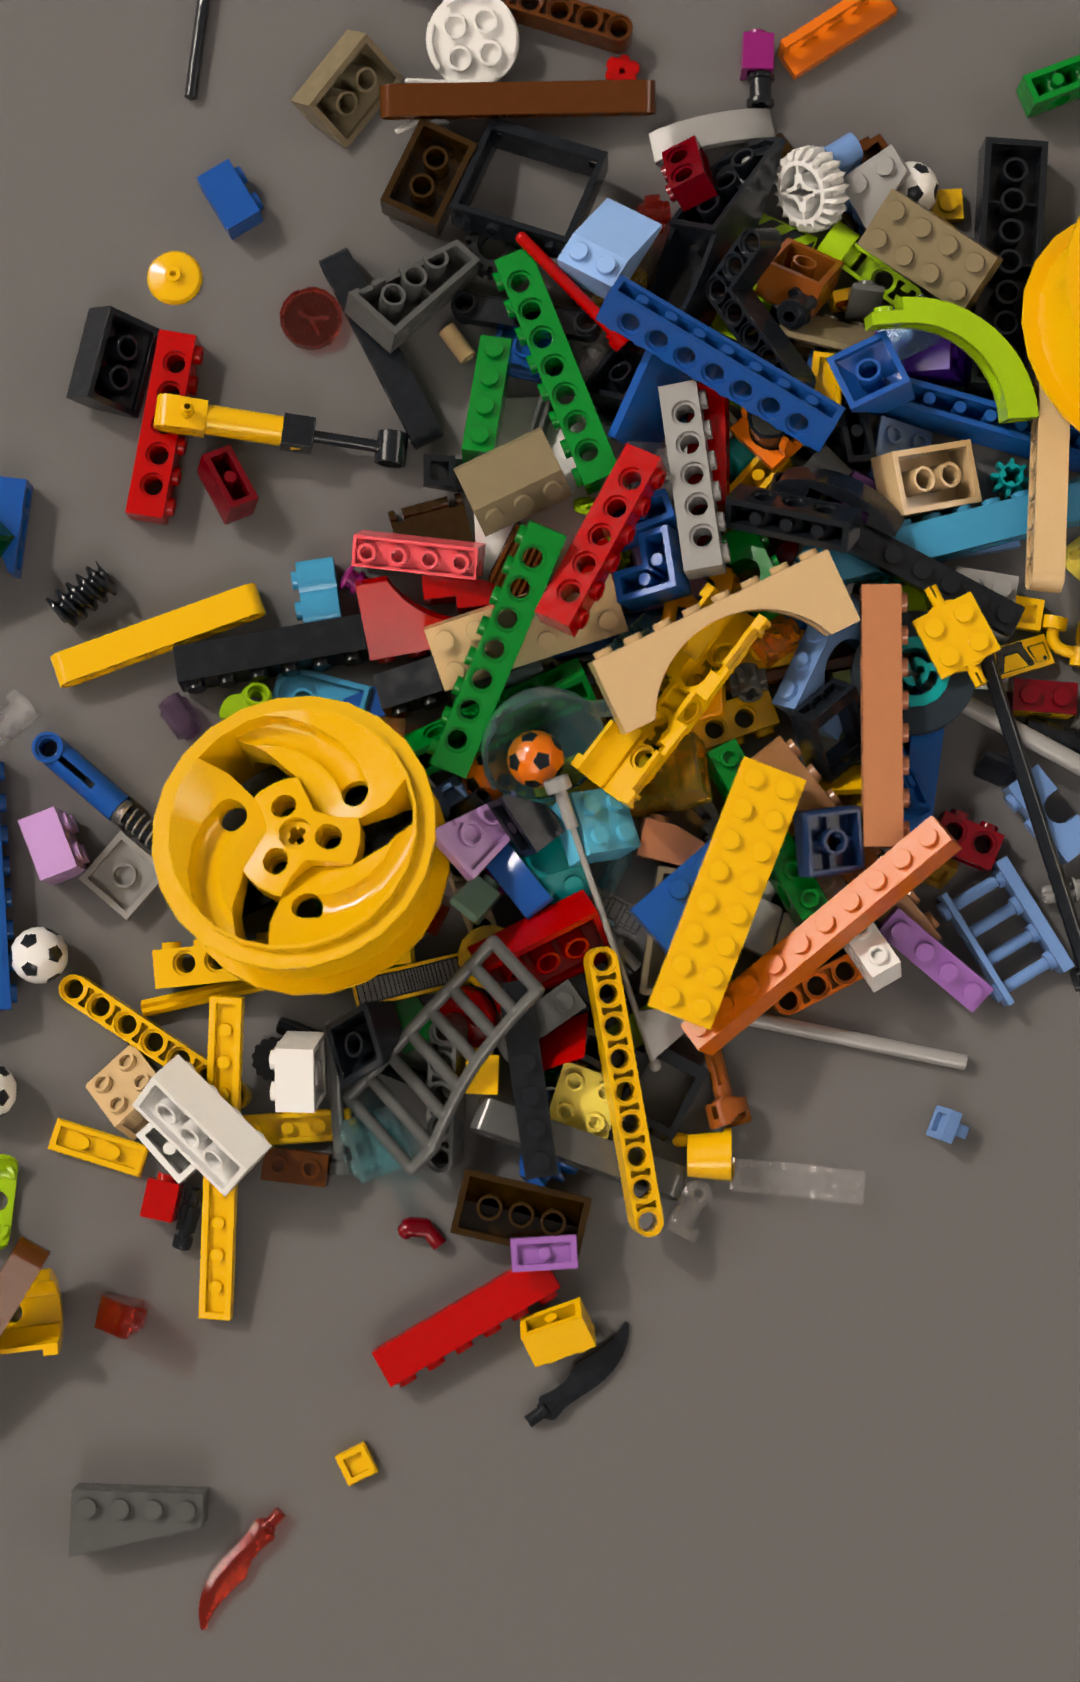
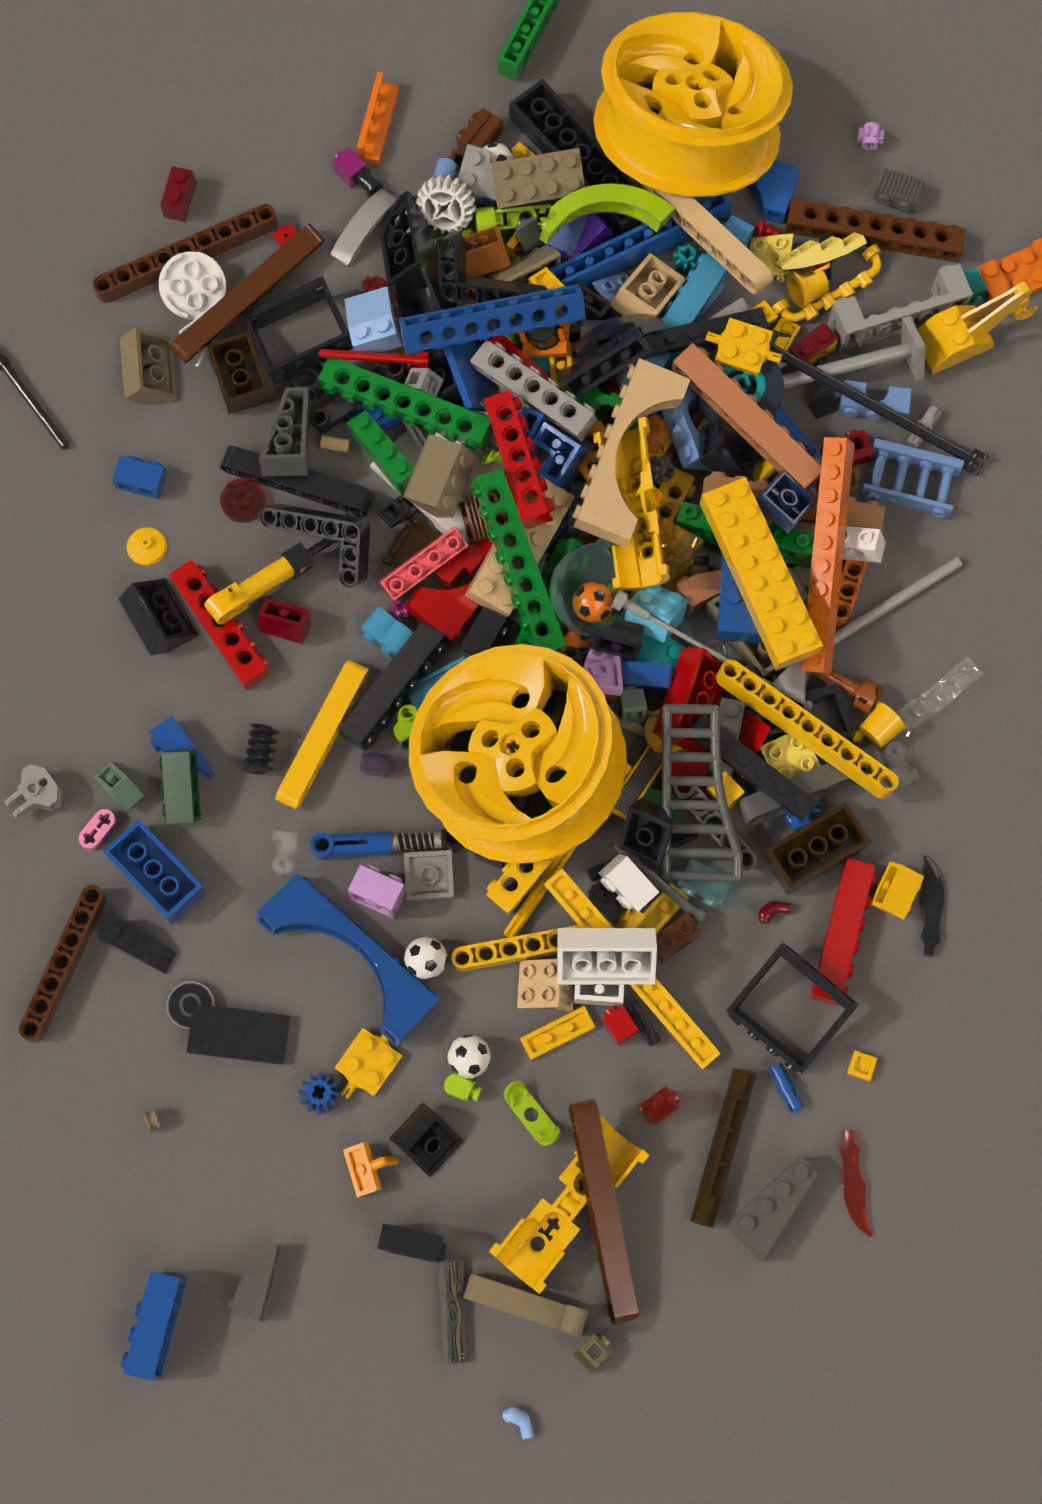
camera: 45 degrees left, 10 degrees down
(143, 1411) = (723, 1148): none -> dark brown piece
(261, 1413) = (786, 1088): none -> blue pin
(265, 1110) = (630, 919): none -> yellow plate
(371, 448) = (325, 529): none -> black beam
(385, 1348) = (758, 1032): none -> black window
(544, 1253) = (850, 850): medium lavender plate -> none
(596, 364) = (424, 380): none -> light grey brick
(688, 174) = (374, 252): dark red brick -> none
(796, 309) = (498, 260): black brick -> none
(872, 375) = (572, 261): blue slope -> none
(929, 141) = (481, 131): none -> reddish brown brick
(934, 959) = (895, 520): medium lavender plate -> none
(946, 1125) = (982, 600): medium blue tile -> none

